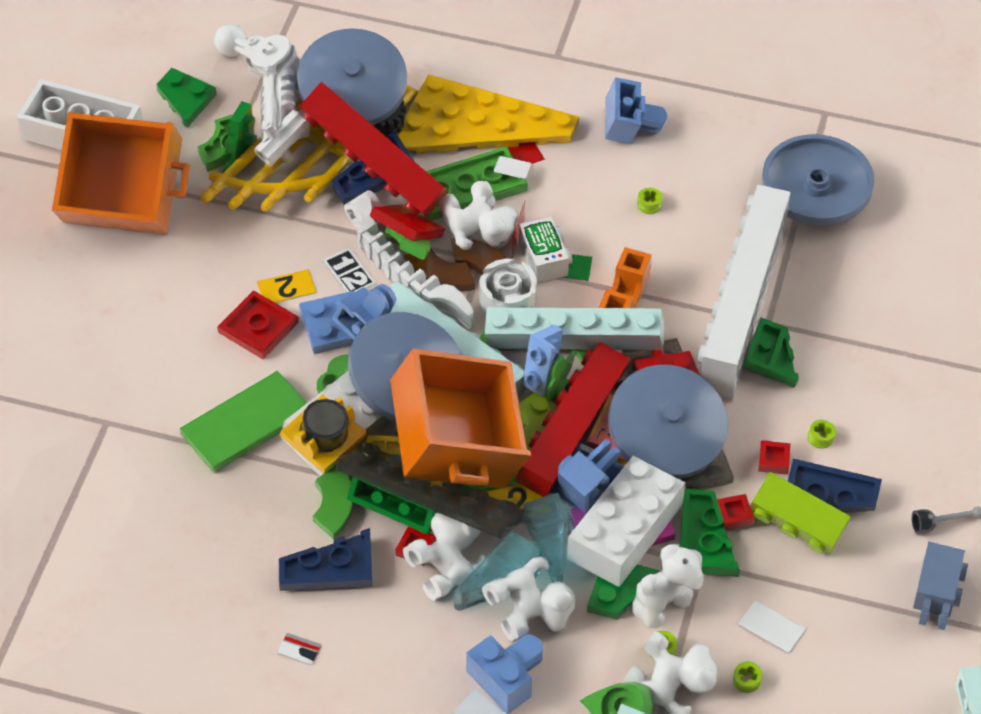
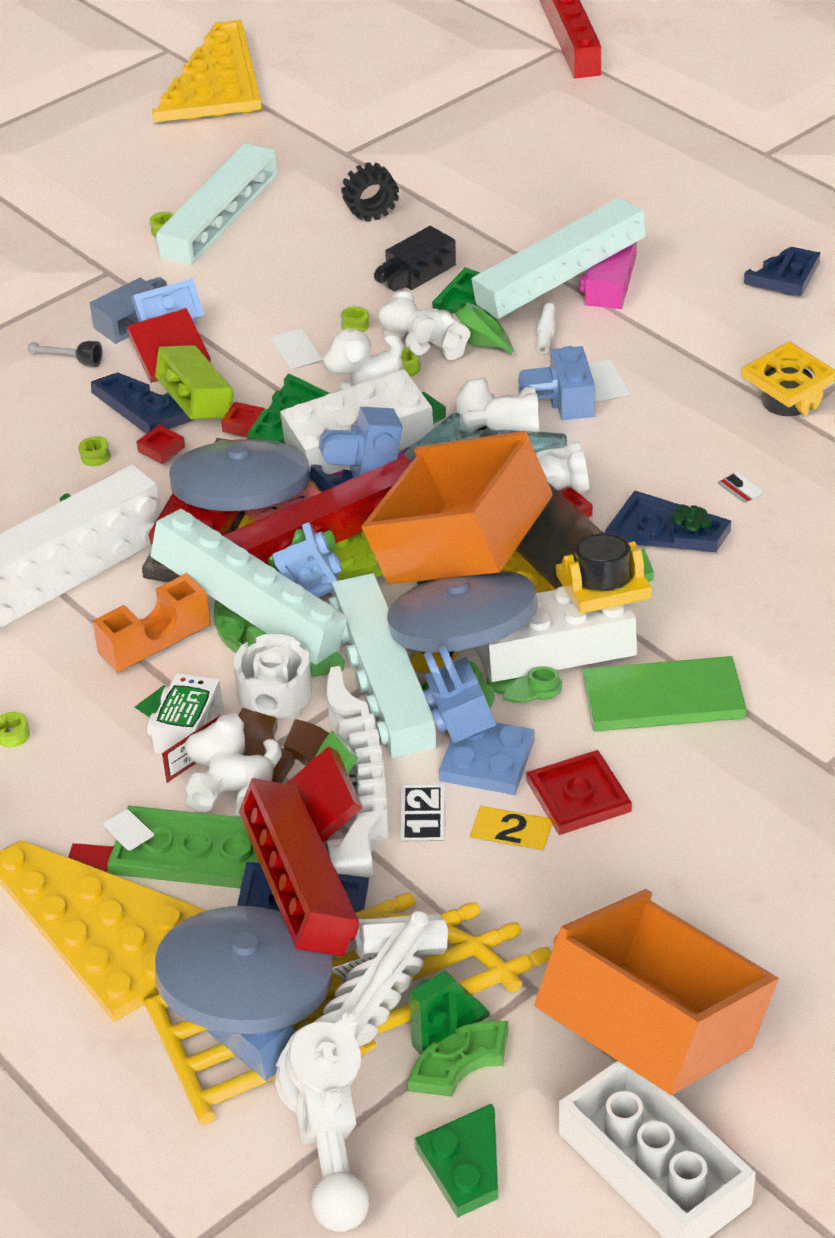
camera: 145 degrees left, 10 degrees down
(308, 565) = (691, 517): none -> dark green plant
(864, 553) = (163, 331): none -> red tile
(897, 582) = (167, 300): none -> light blue bracket

